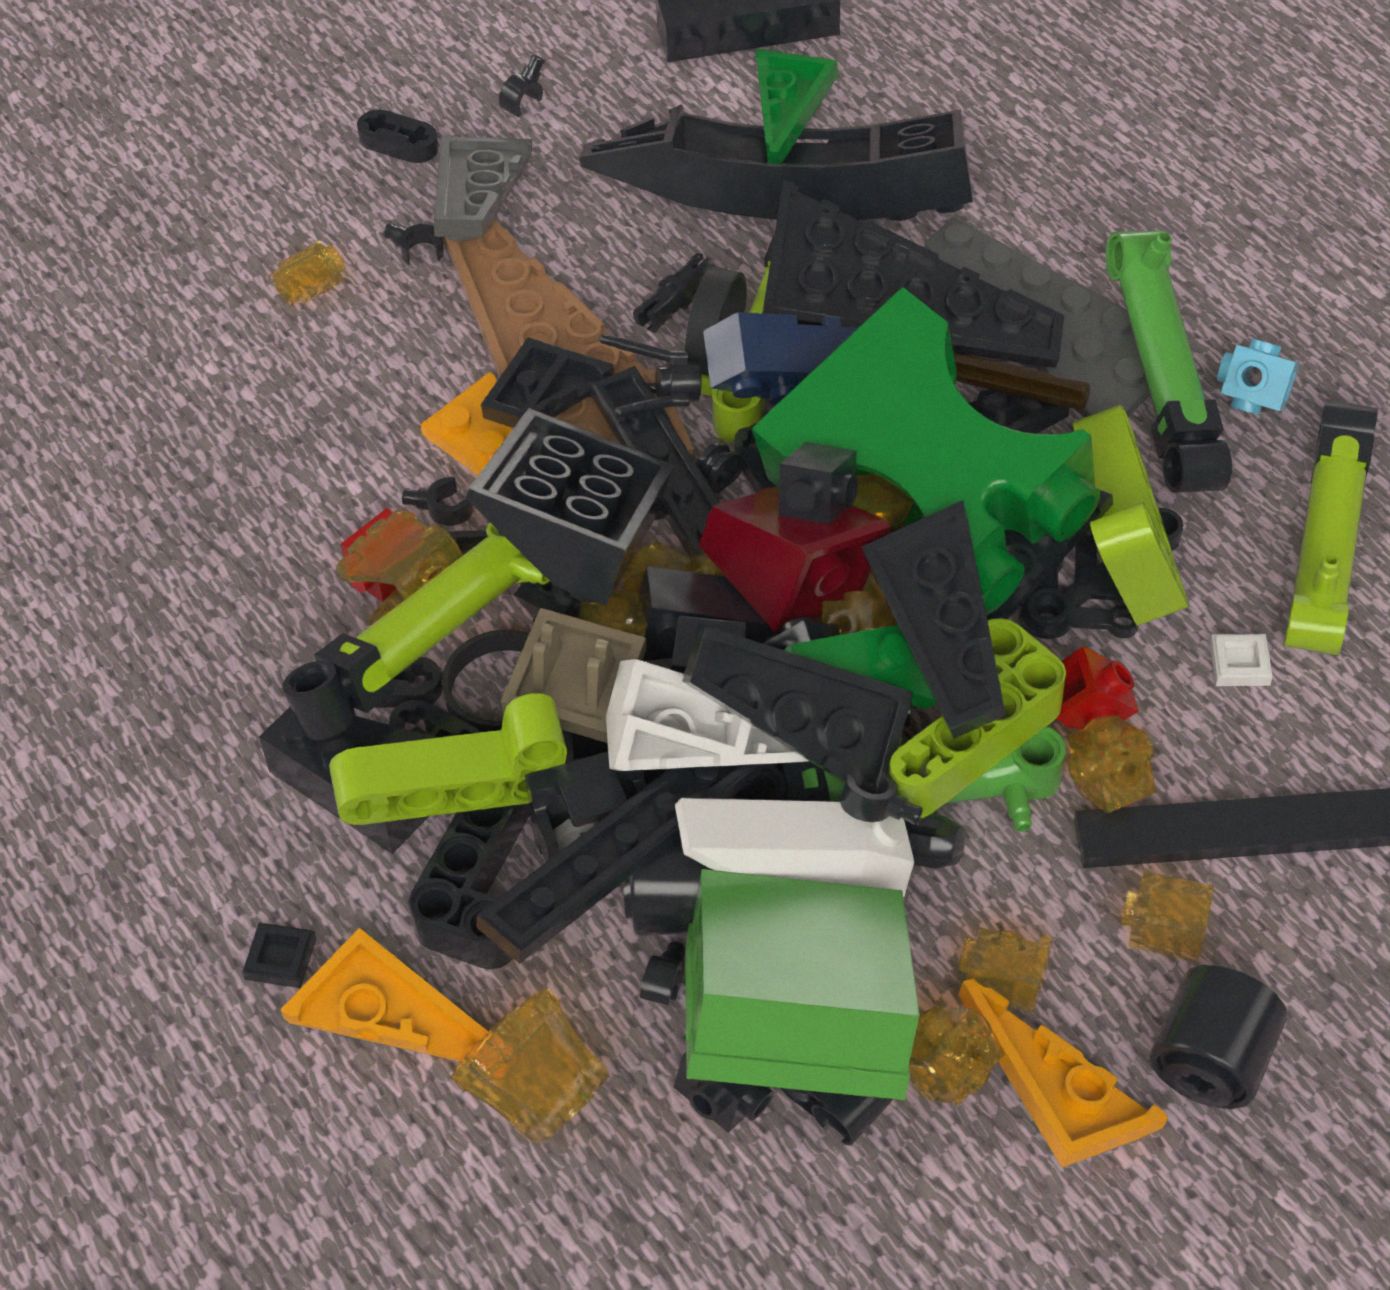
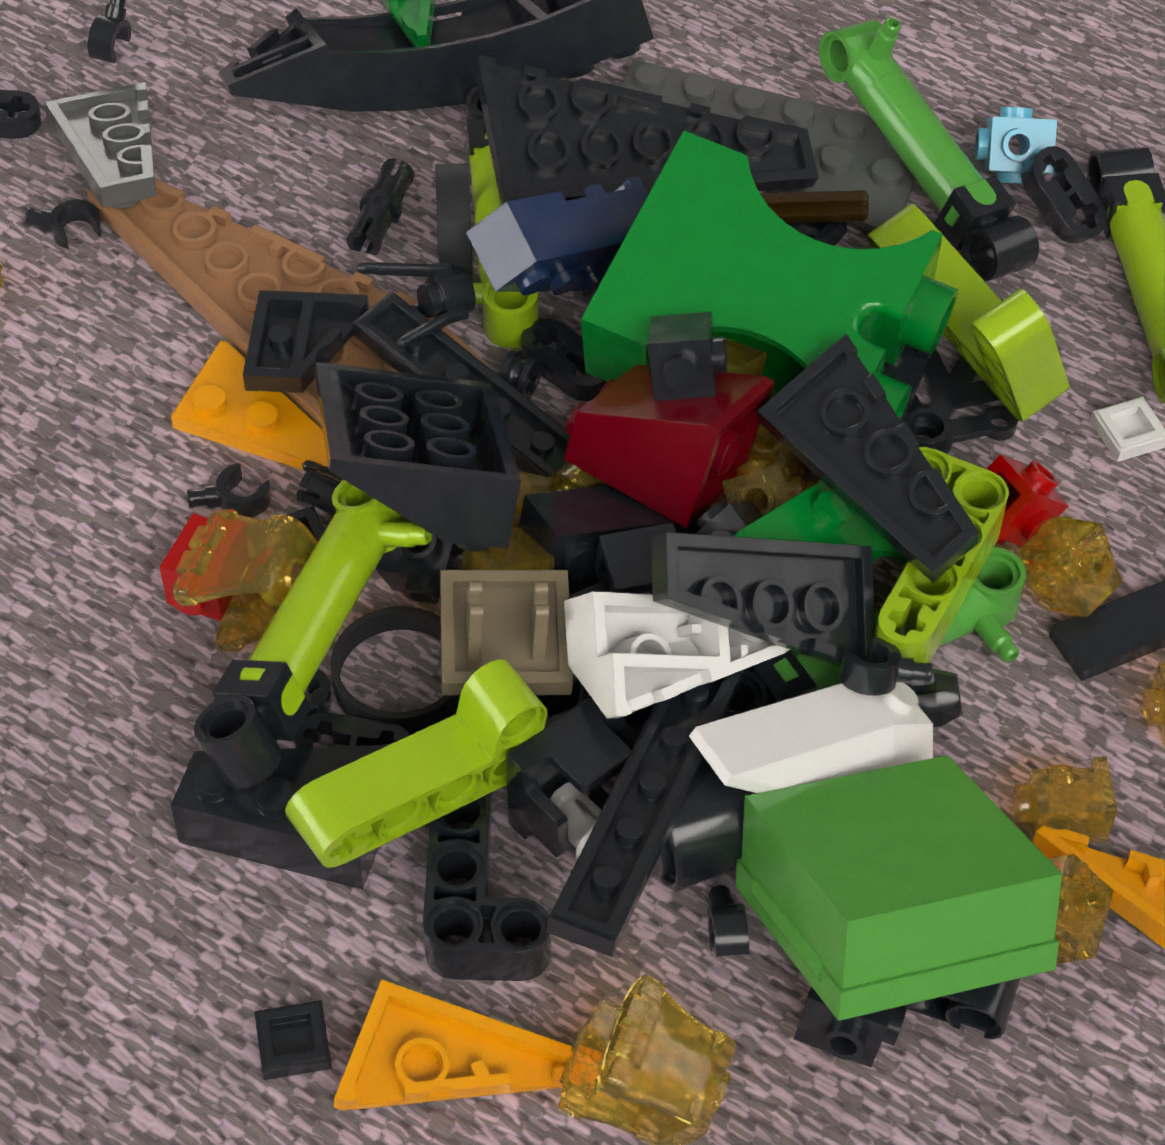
camera: 25 degrees left, 0 degrees up
(1289, 427) = (1063, 195): none -> black beam

